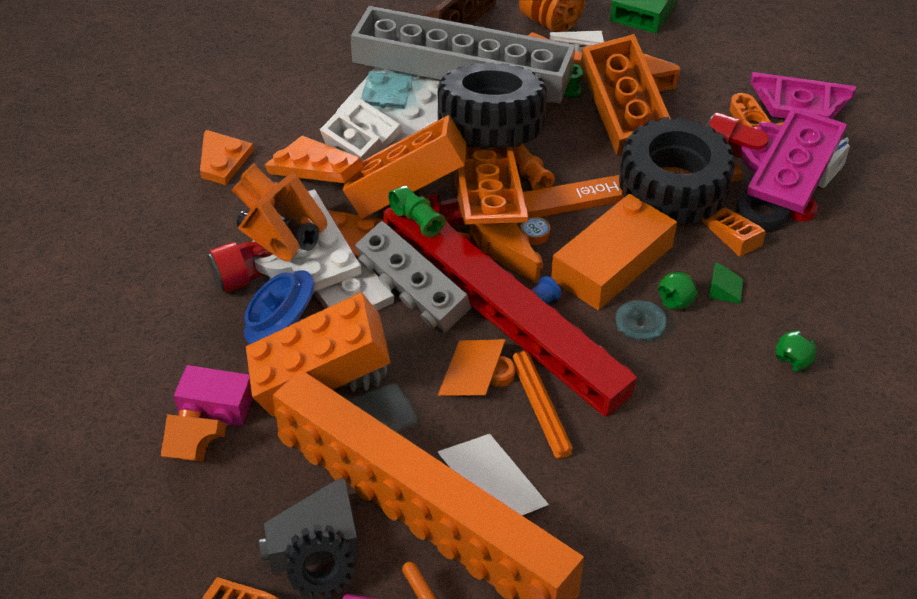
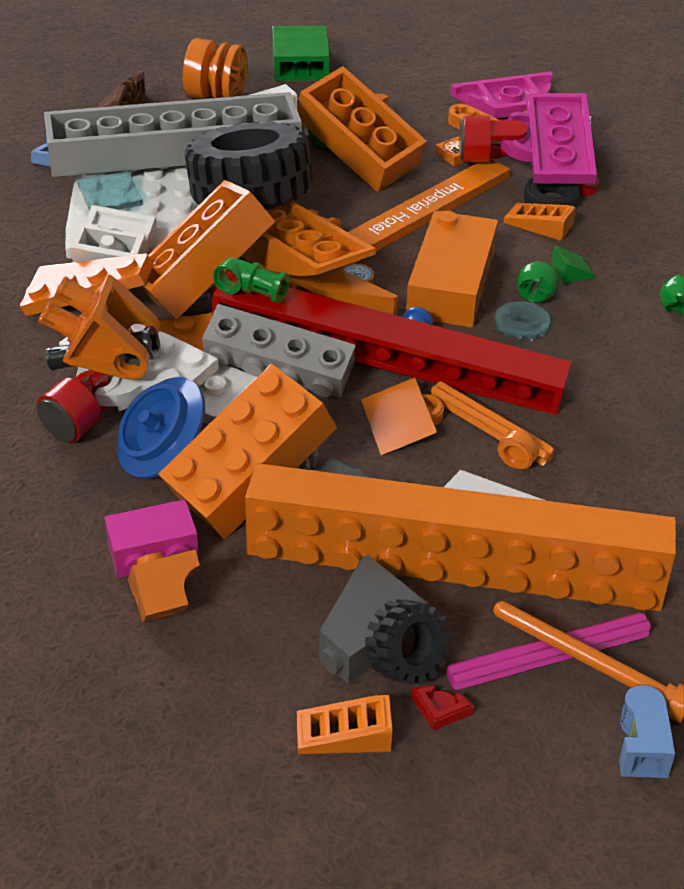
camera: 30 degrees left, 5 degrees down
(539, 437) = (518, 450): none -> orange tile
(682, 146) = (462, 173): black tyre -> none

